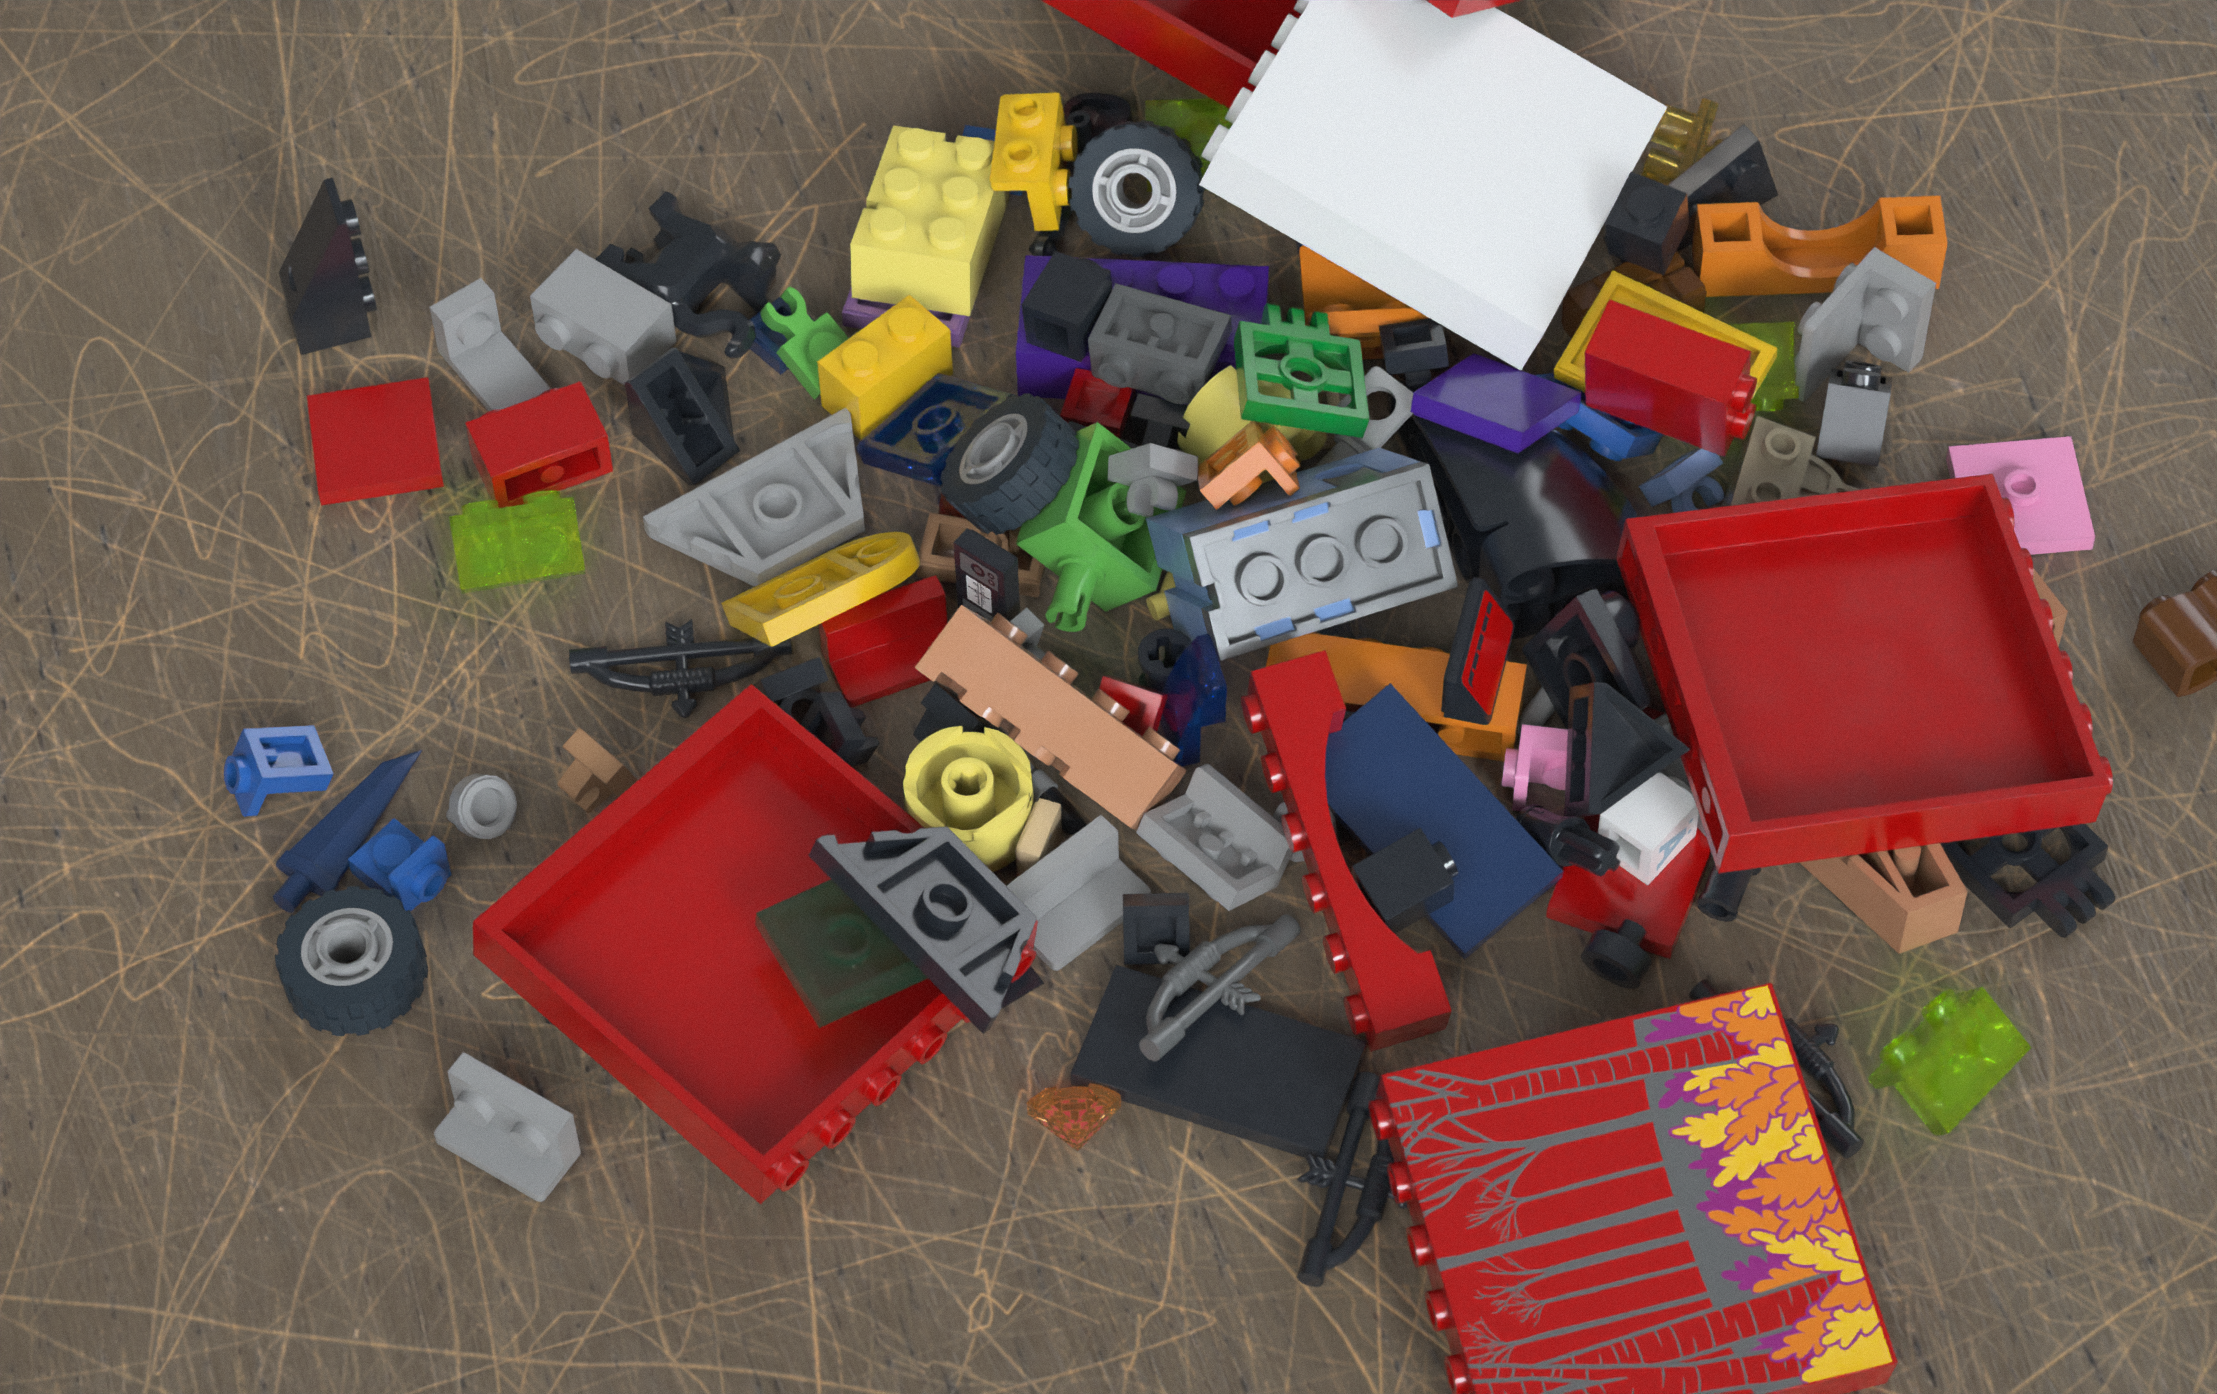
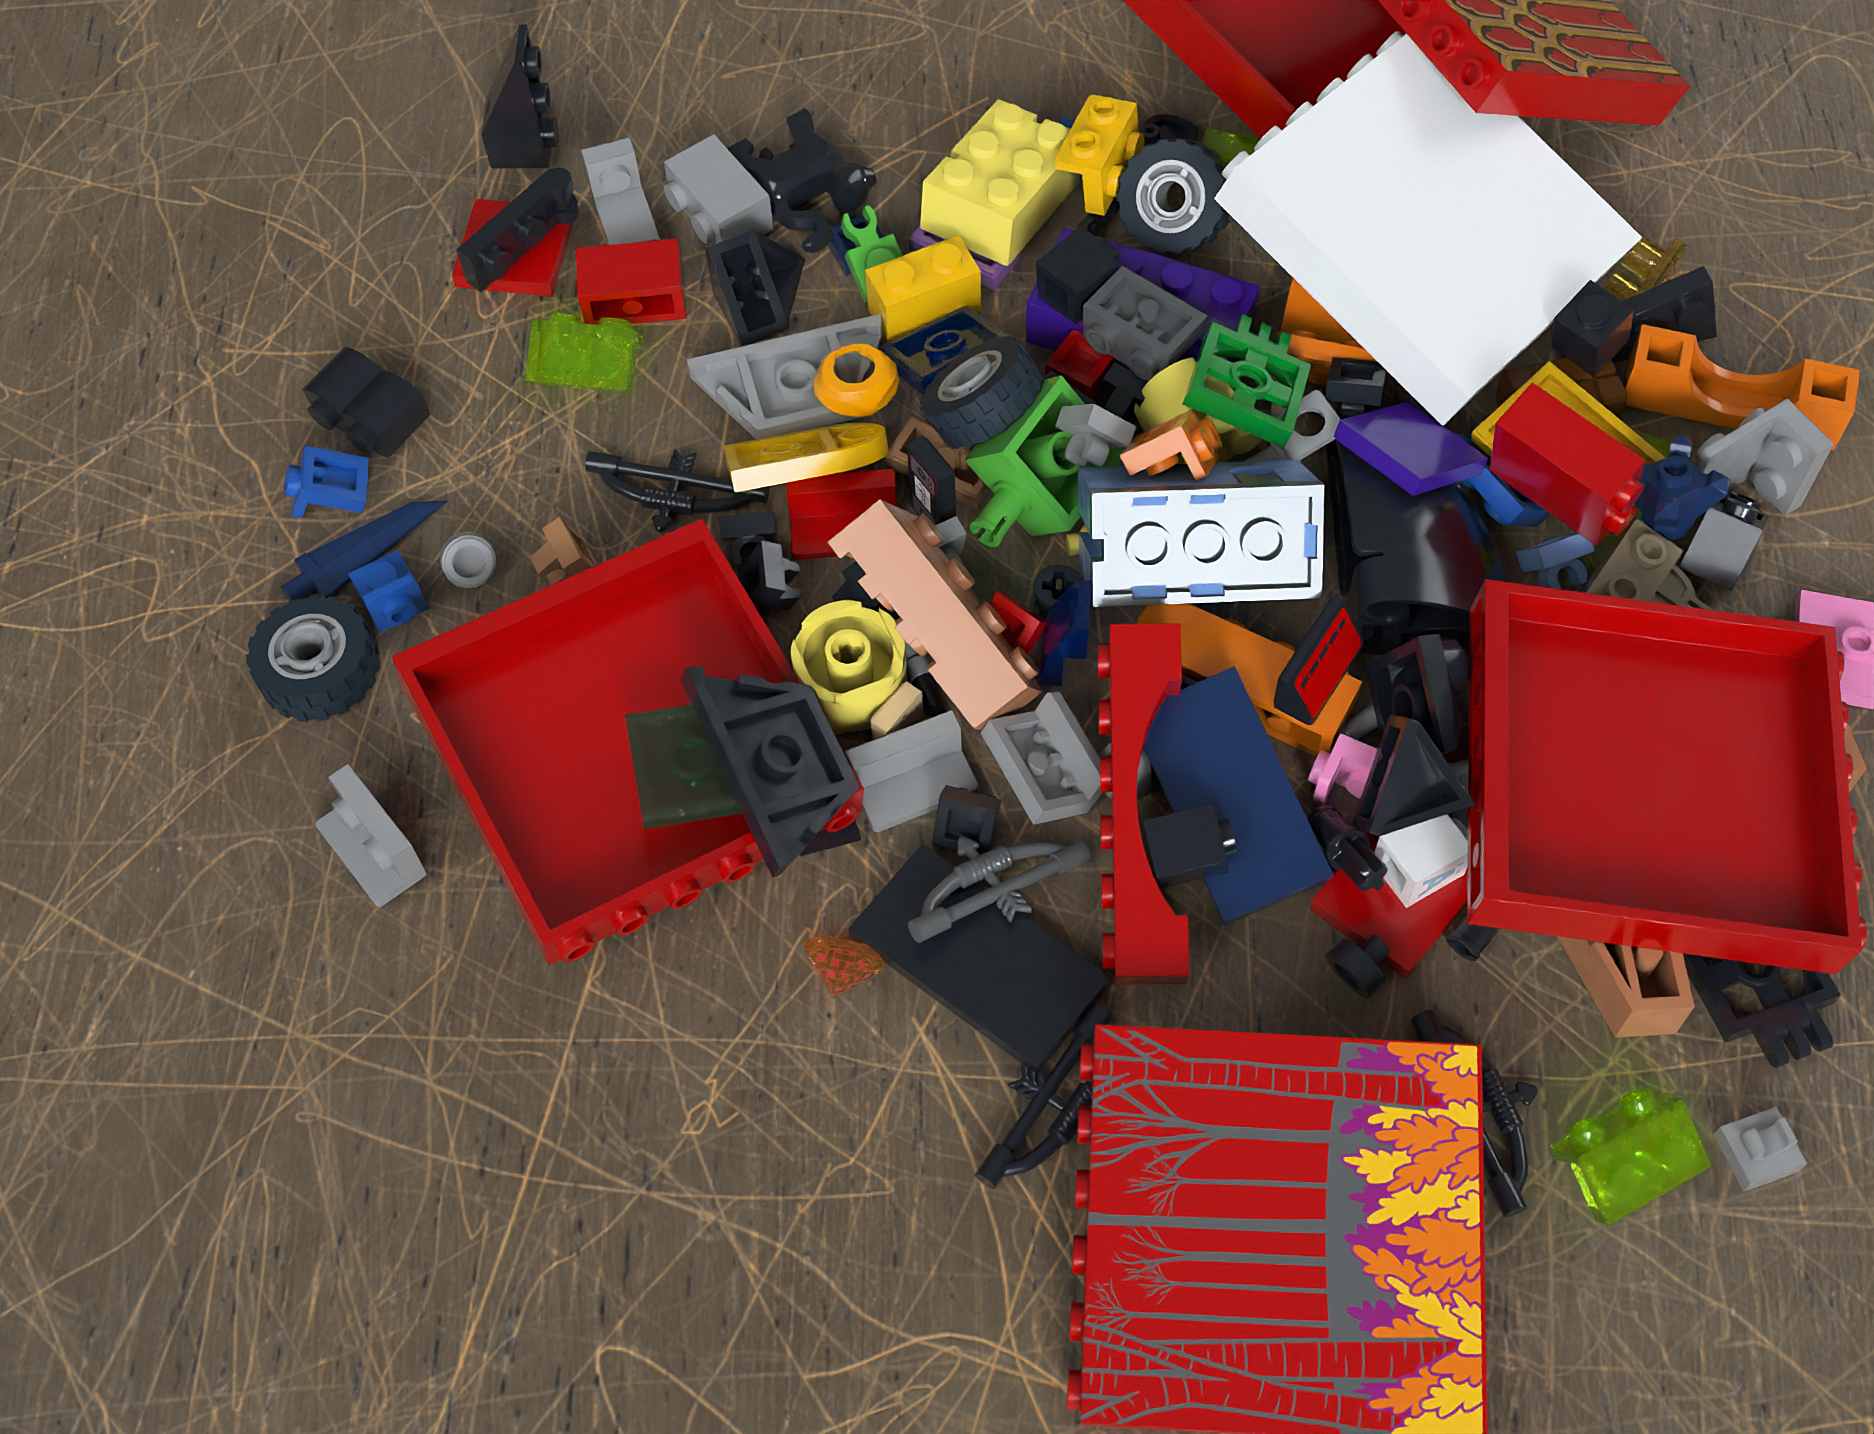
camera: 20 degrees right, 5 degrees up
(283, 664) = (365, 402): none -> black brick
(385, 416) = (518, 228): none -> black plate
(854, 510) = (858, 398): none -> light orange piece
(1792, 375) = (1678, 491): none -> dark blue rock
(2074, 1018) = (1760, 1148): none -> light grey tile

